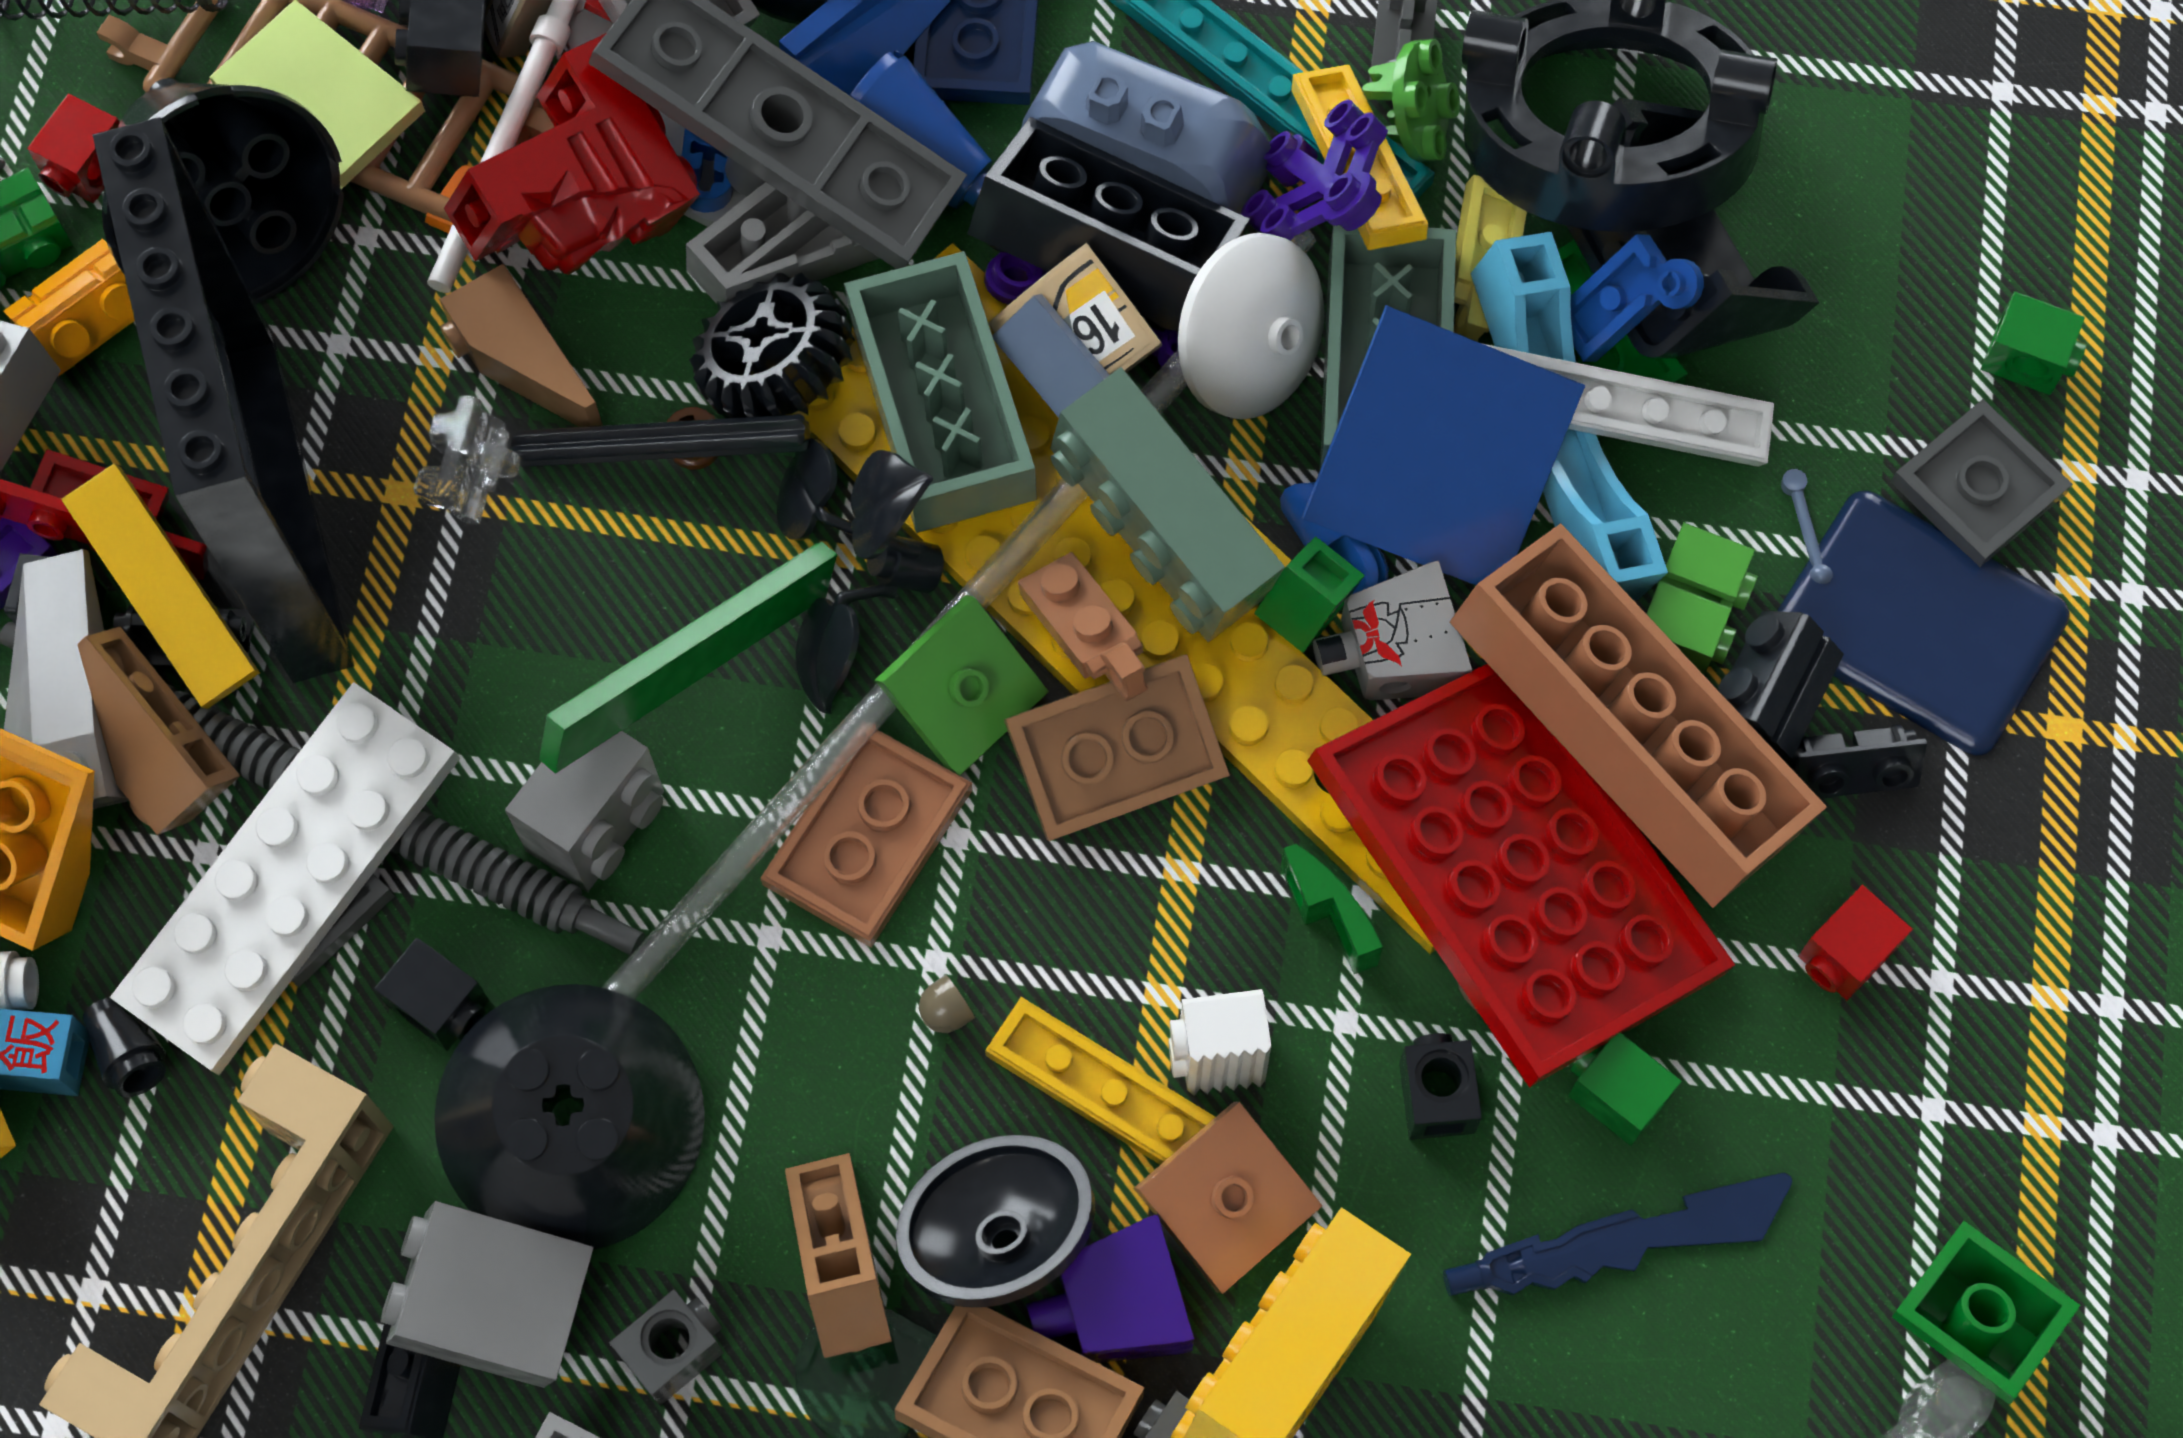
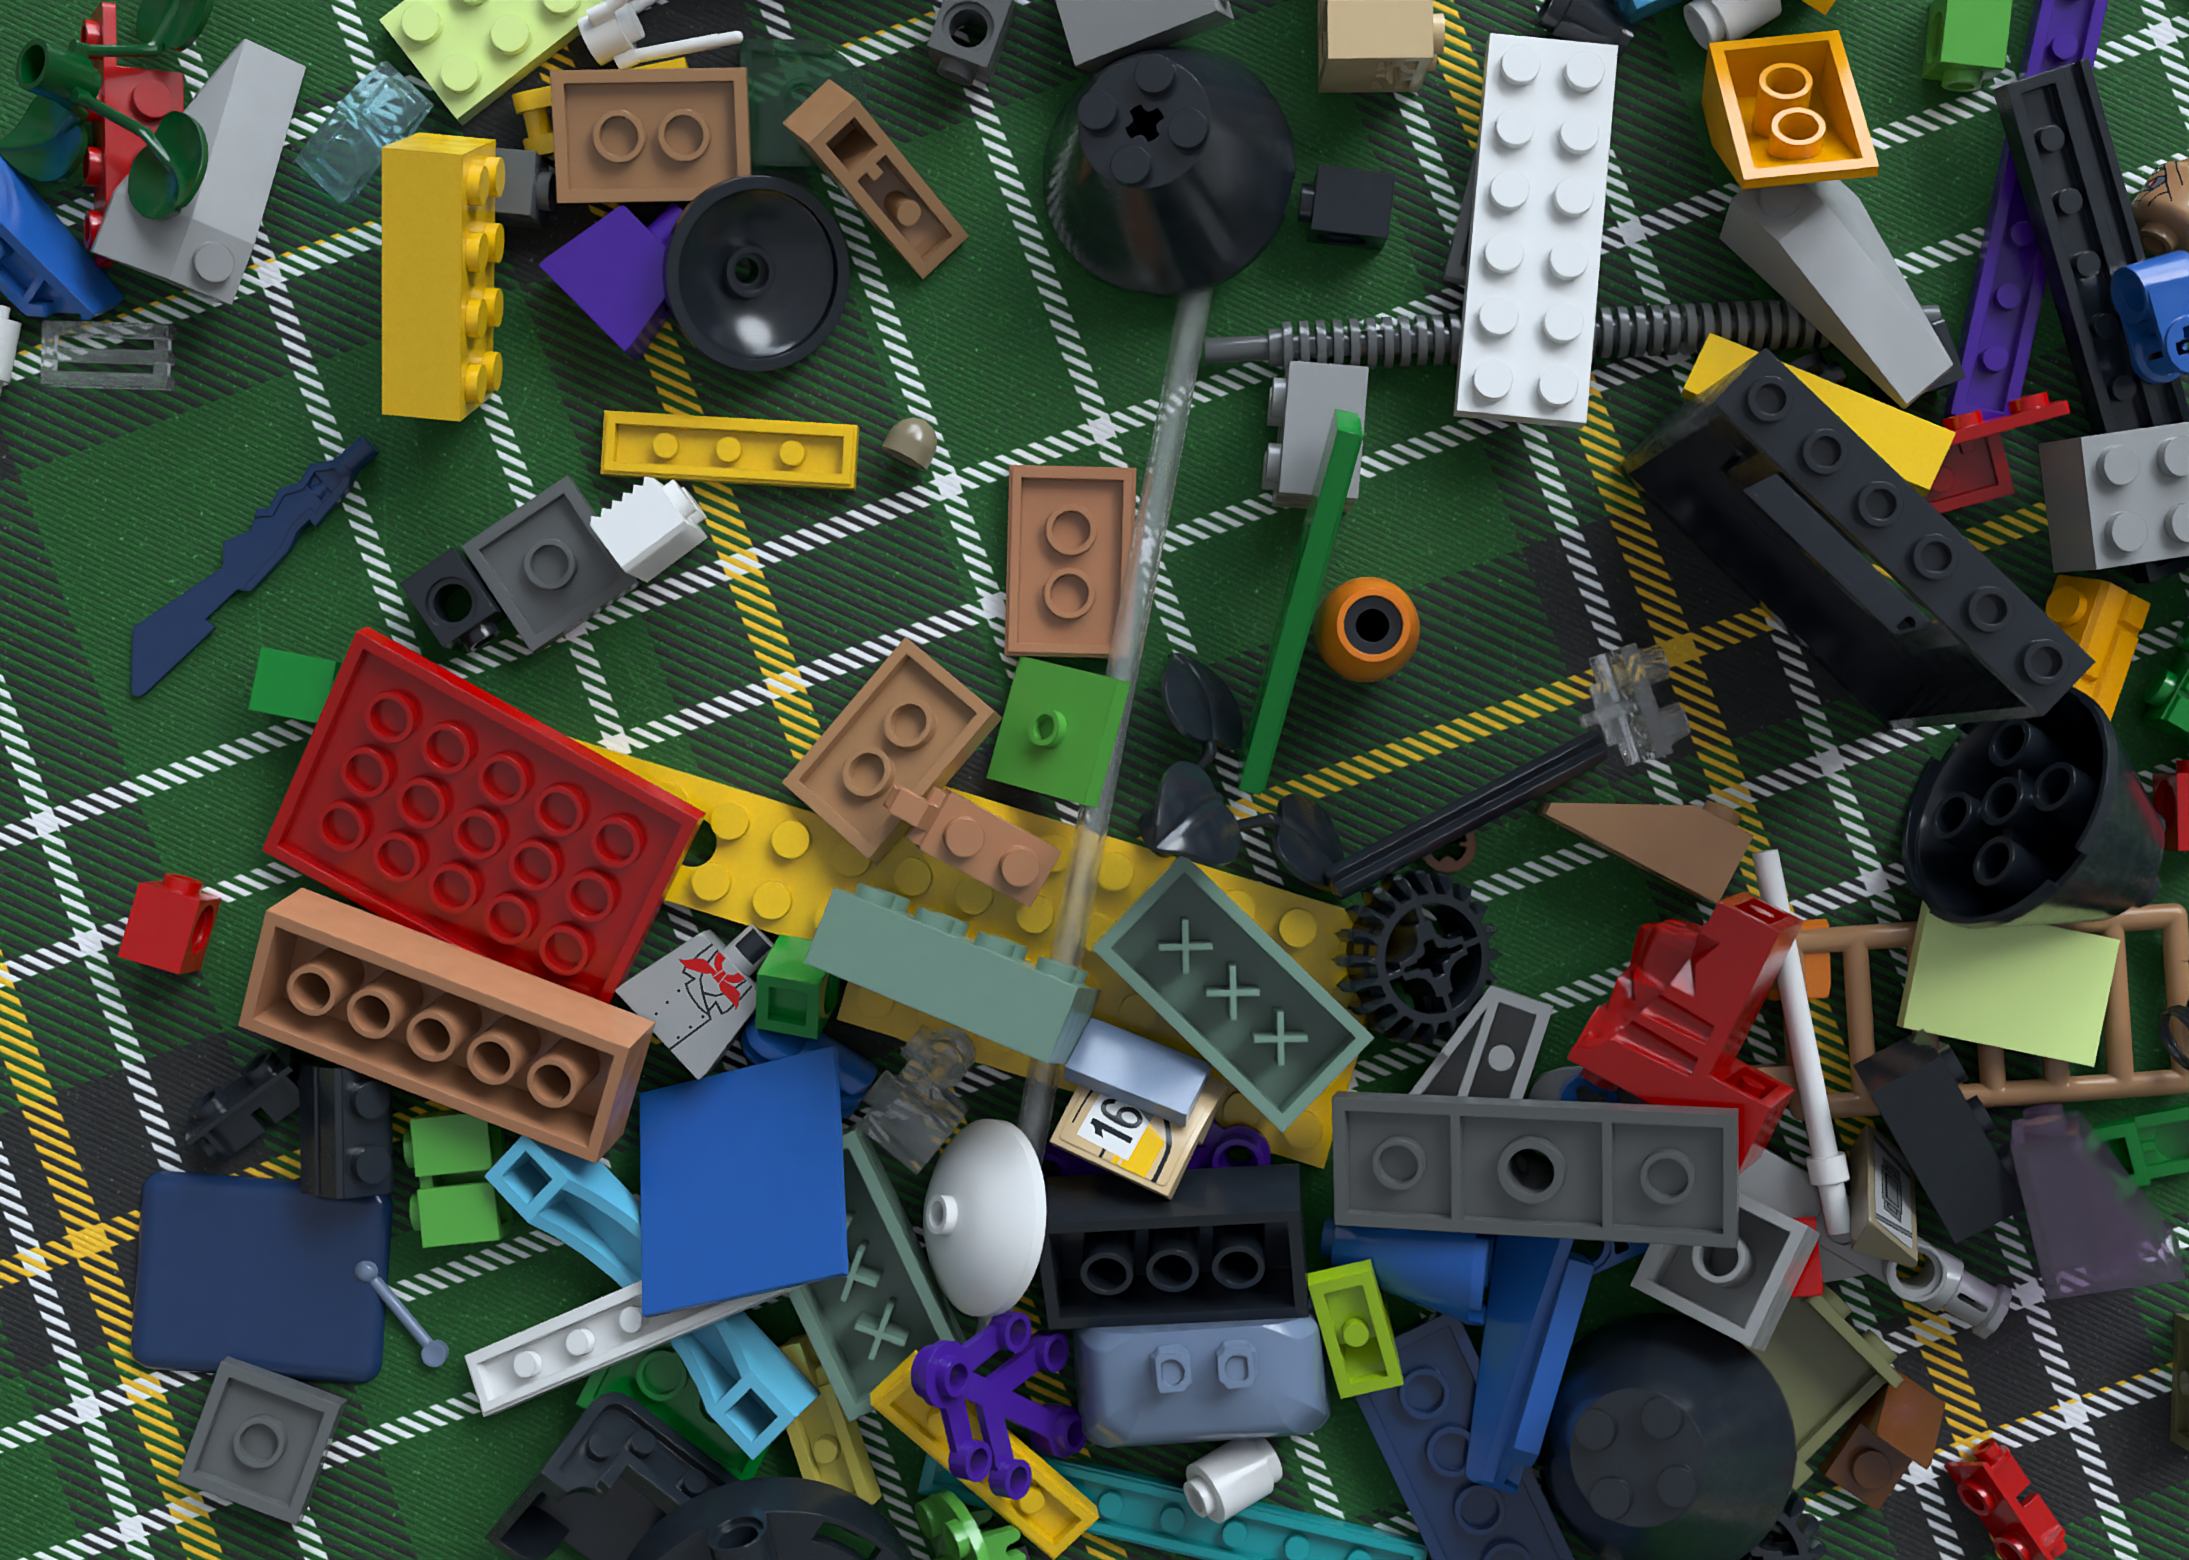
camera: 150 degrees right, 20 degrees up
(151, 739) = (1736, 281): medium nougat slope -> none
(641, 606) = (1388, 611): none -> orange piece
(998, 98) = (1356, 1328): none -> lime slope
(1173, 46) = (1232, 1478): none -> white brick
(1228, 1197) = (582, 409): nougat plate -> none
(1261, 451) = (916, 1108): none -> clear brick
(1323, 895) = (645, 714): green slope -> none
(1335, 1076) = (549, 565): none -> dark grey plate
(1627, 292) = (651, 1439): blue hinge -> none

